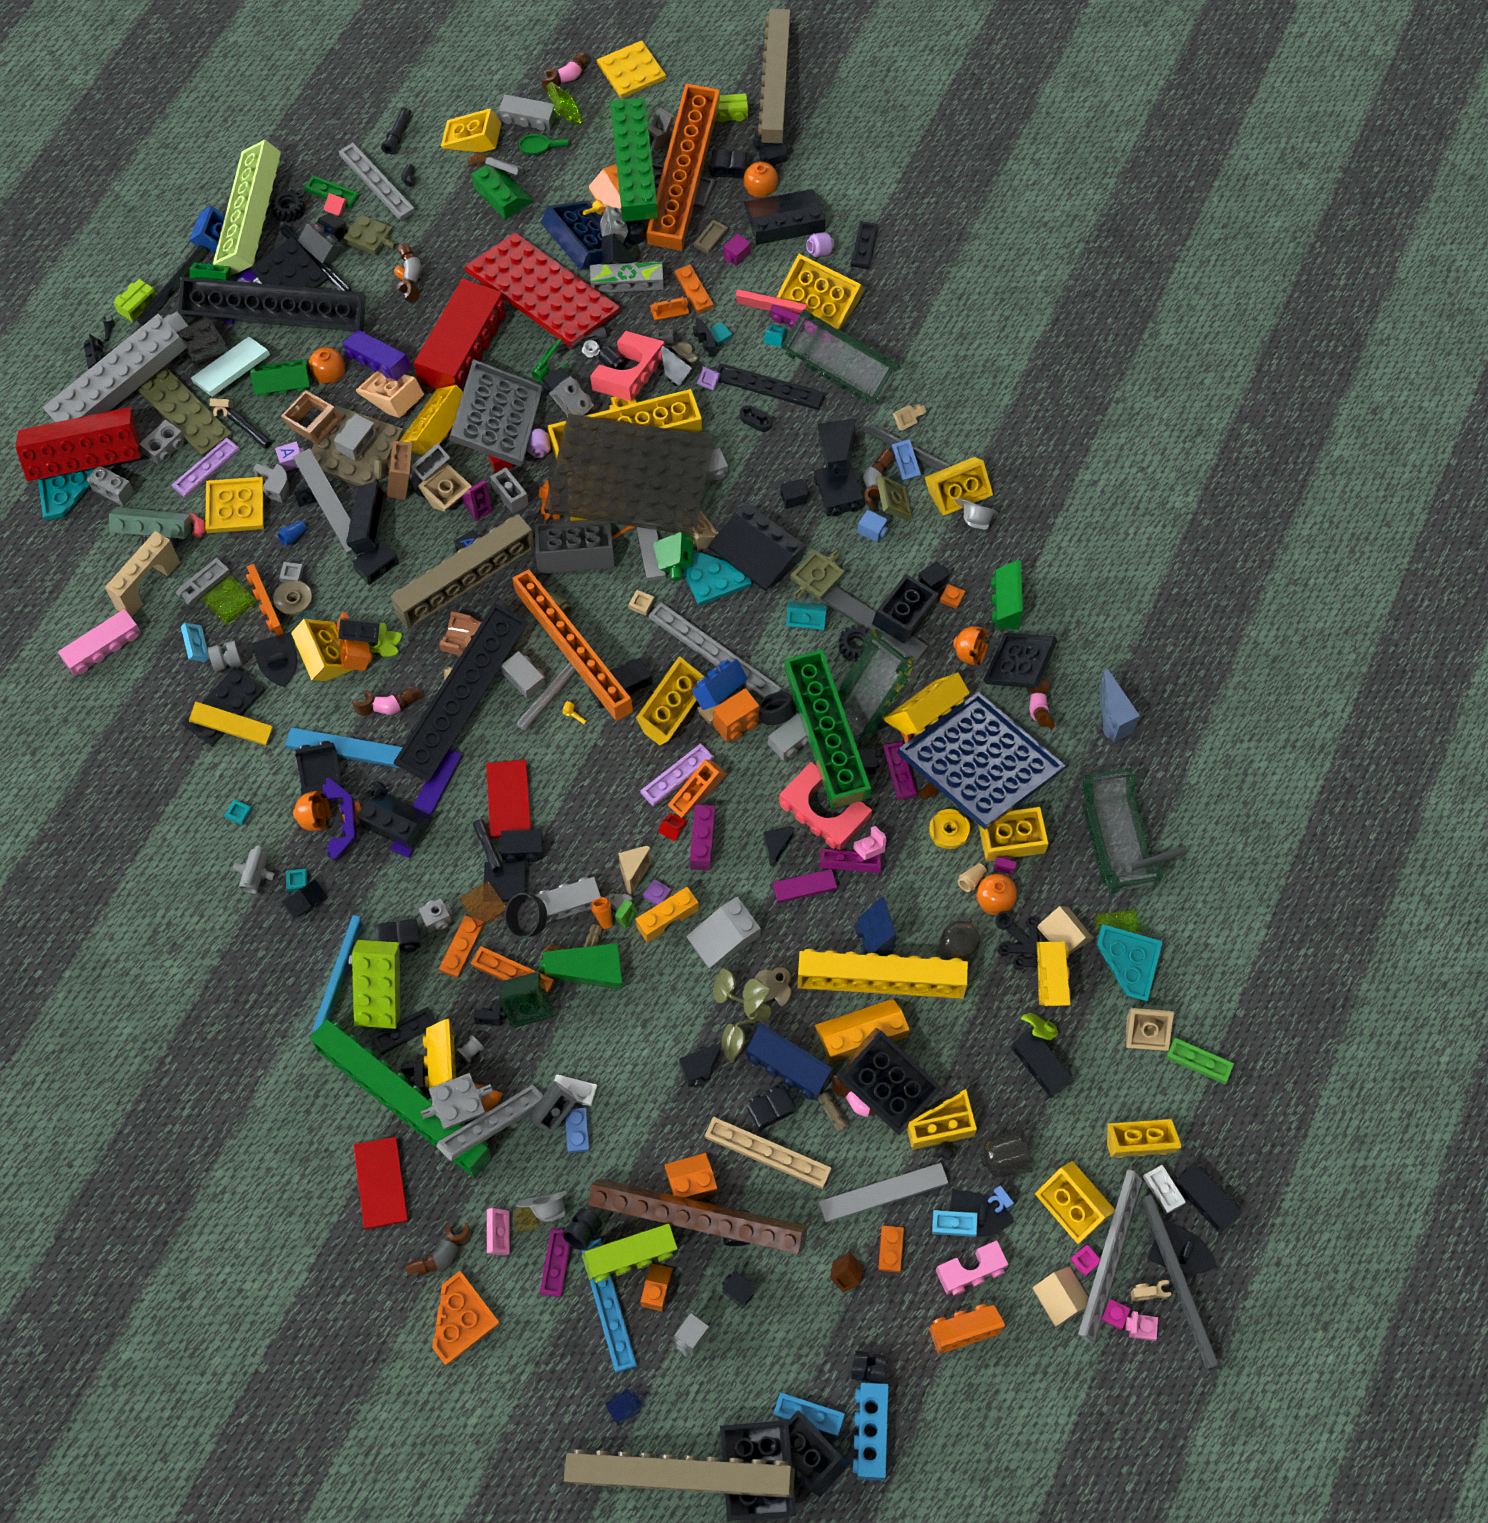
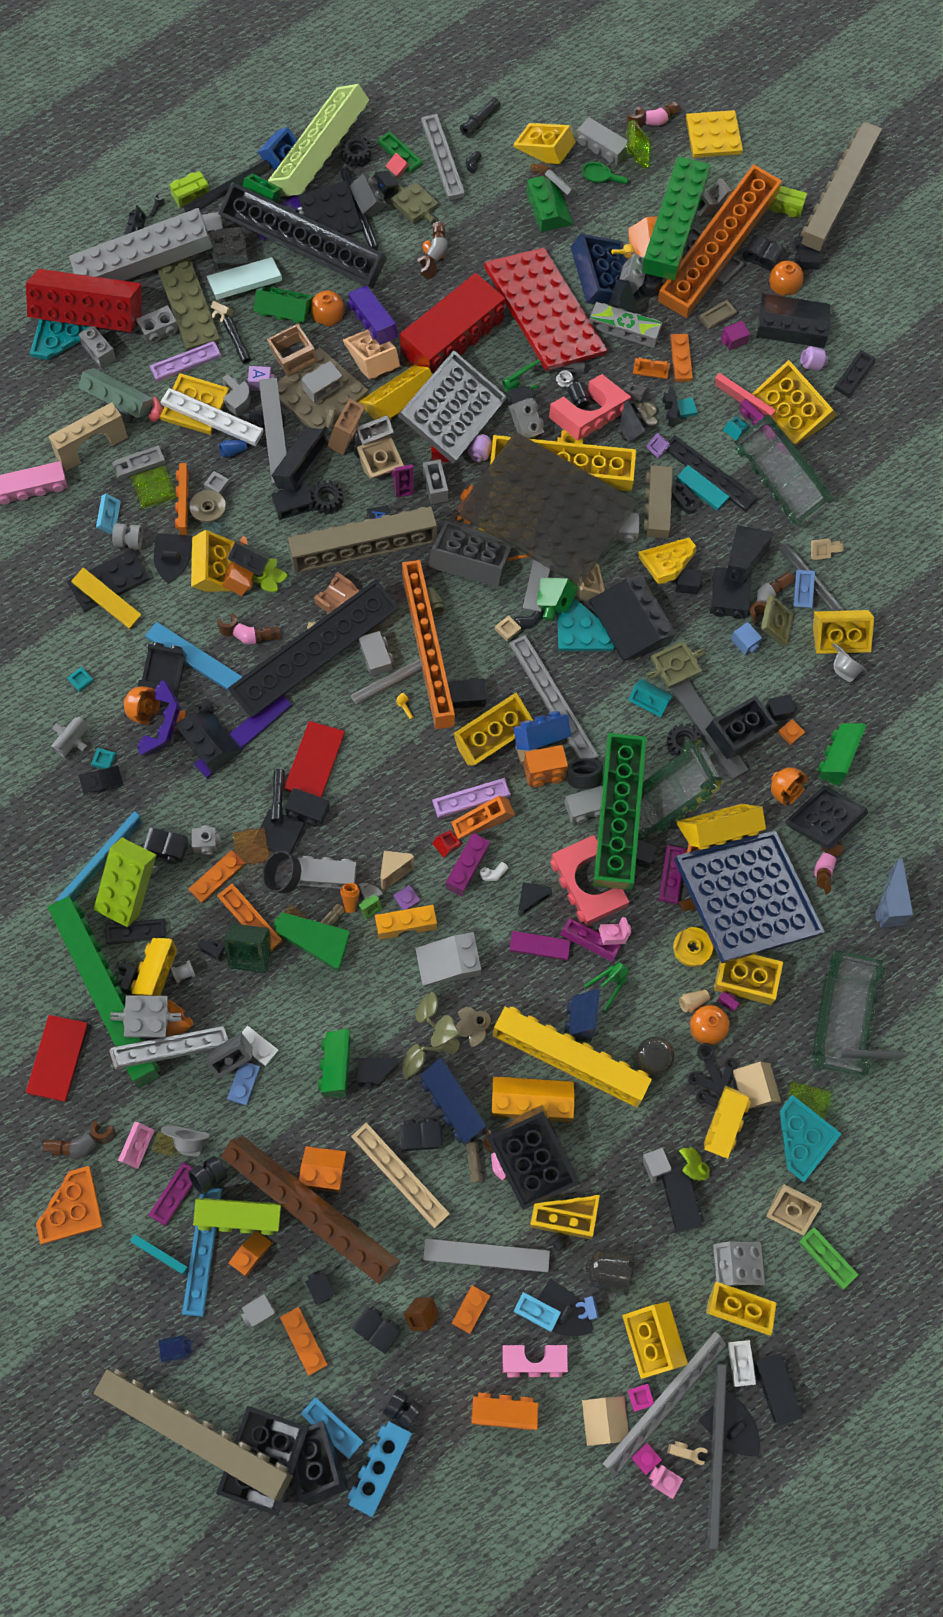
camera: 20 degrees right, 5 degrees up
(258, 510) = (212, 417): none -> white tile
(408, 535) = (323, 488): none -> black tyre
(568, 1325) = (160, 1255): none -> teal tile
(658, 589) = (528, 622): none -> black arm
(659, 1073) = (335, 1063): none -> green slope
(730, 838) = (493, 875): none -> white arm
(733, 430) = (659, 502): none -> dark tan brick
(744, 1346) = (303, 1341): none -> orange plate
(766, 481) = (668, 560): none -> yellow plate
(768, 402) = (702, 488): none -> teal tile
(810, 1305) = (376, 1329): none -> black brick
(889, 882) = (615, 973): none -> green plant
(1004, 1041) = (656, 1164): none -> light grey panel
(1120, 1099) = (739, 1263): none -> light grey bracket

